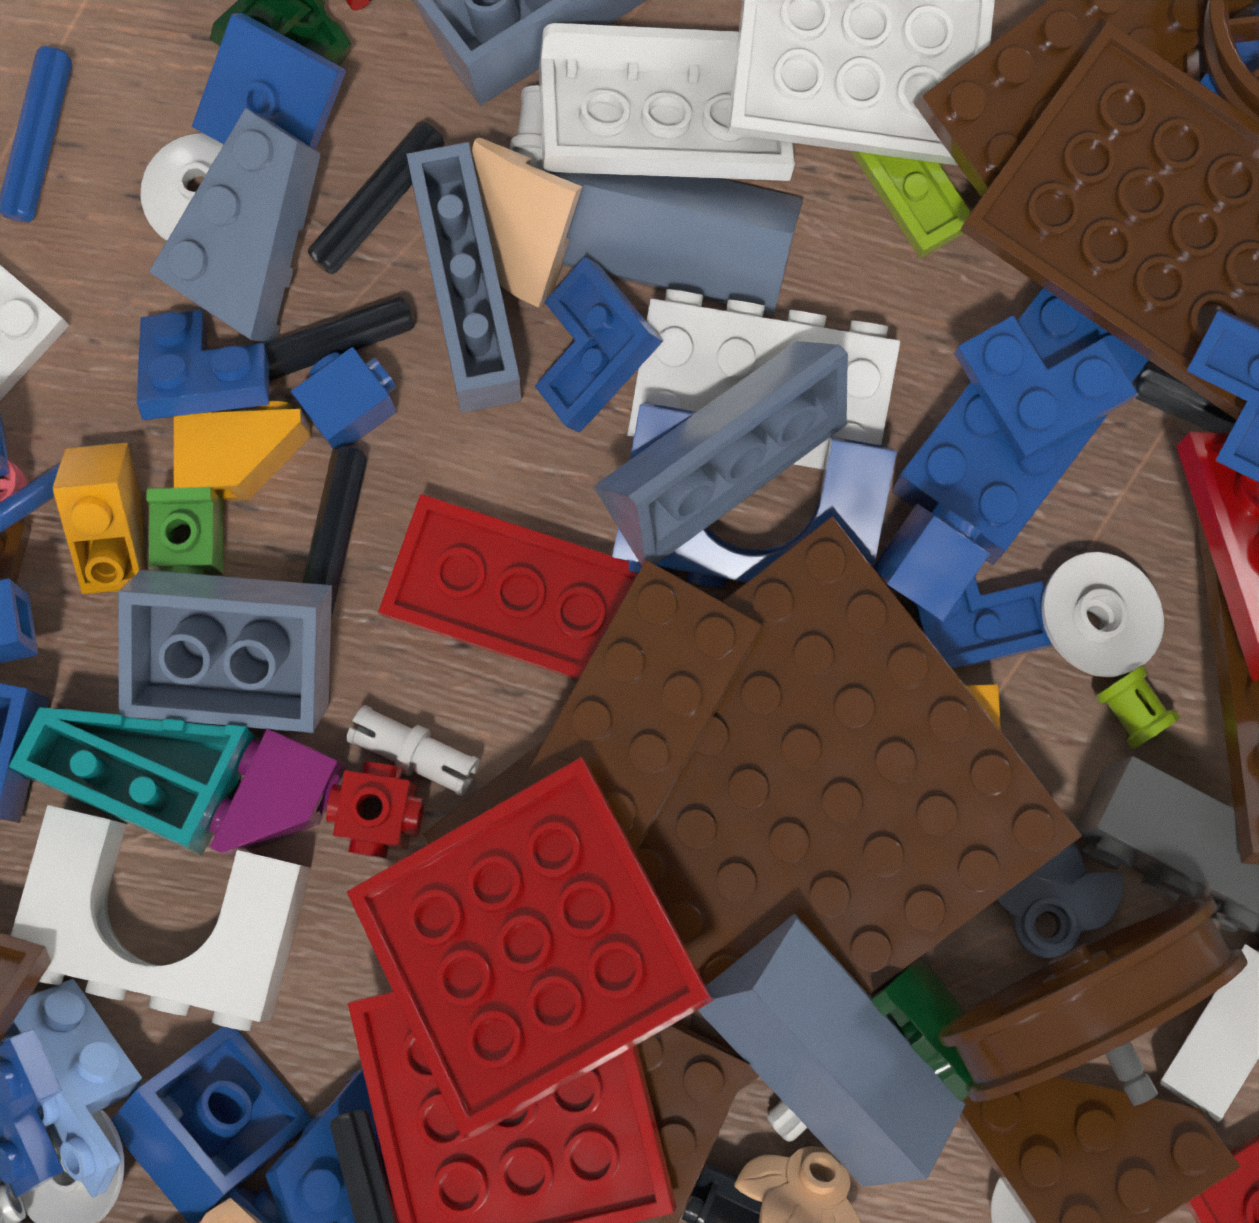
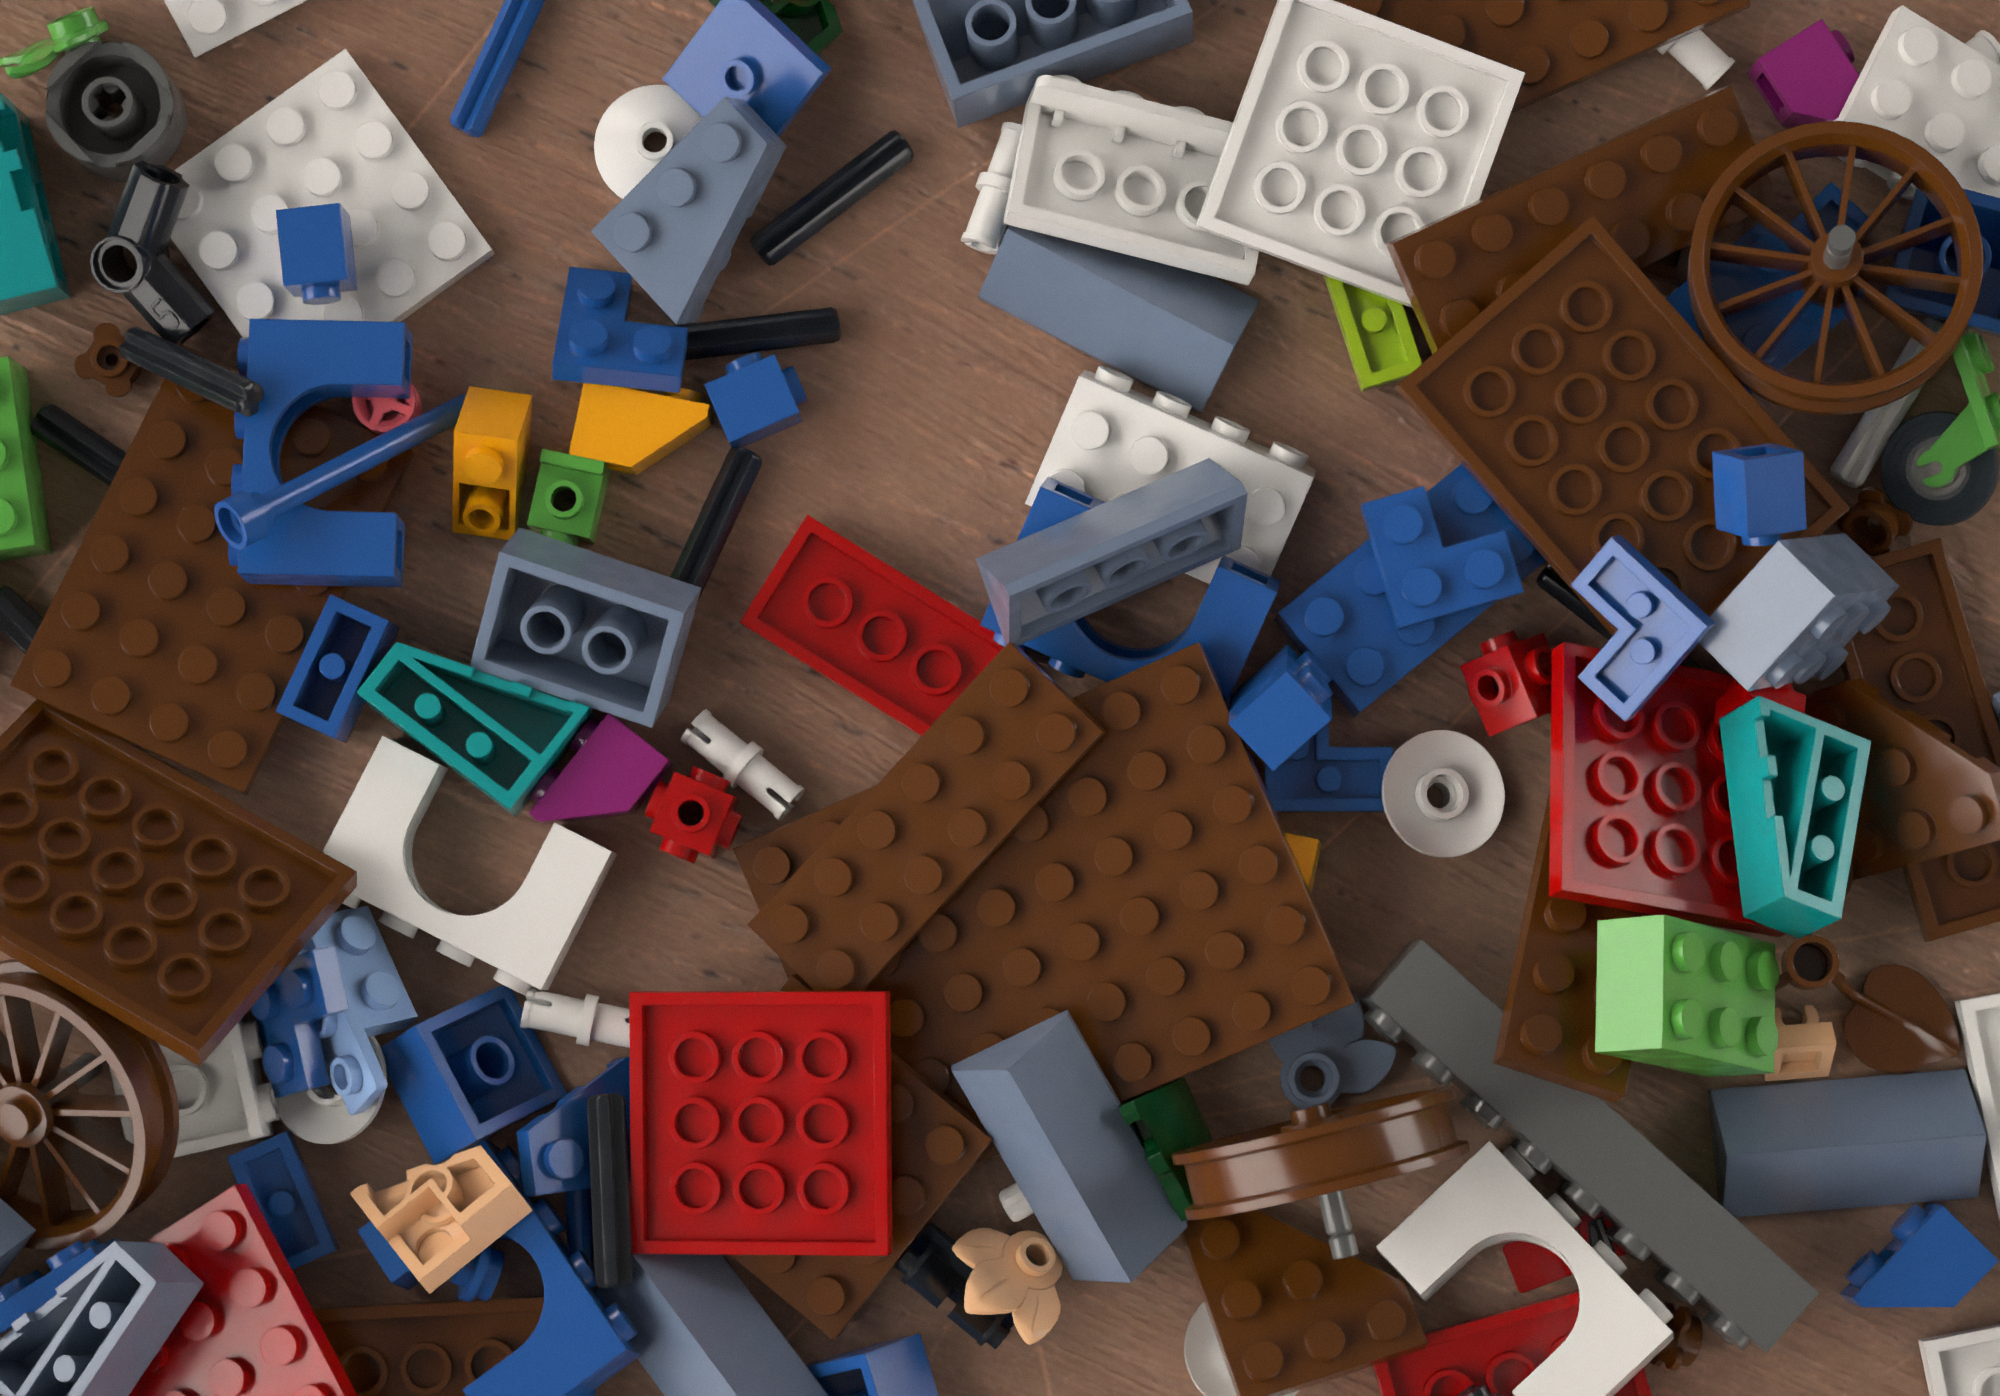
camera: 10 degrees right, 5 degrees up
(302, 1041) = (576, 1018): none -> white pin
(464, 277) = (900, 308): sand blue brick -> none
(525, 219) = (972, 264): light nougat slope -> none
(527, 948) = (810, 980): red plate -> none
(607, 348) = (1027, 409): blue plate -> none
(1137, 707) = (1453, 891): lime bush -> none
(1141, 489) = (1510, 681): none -> red brick

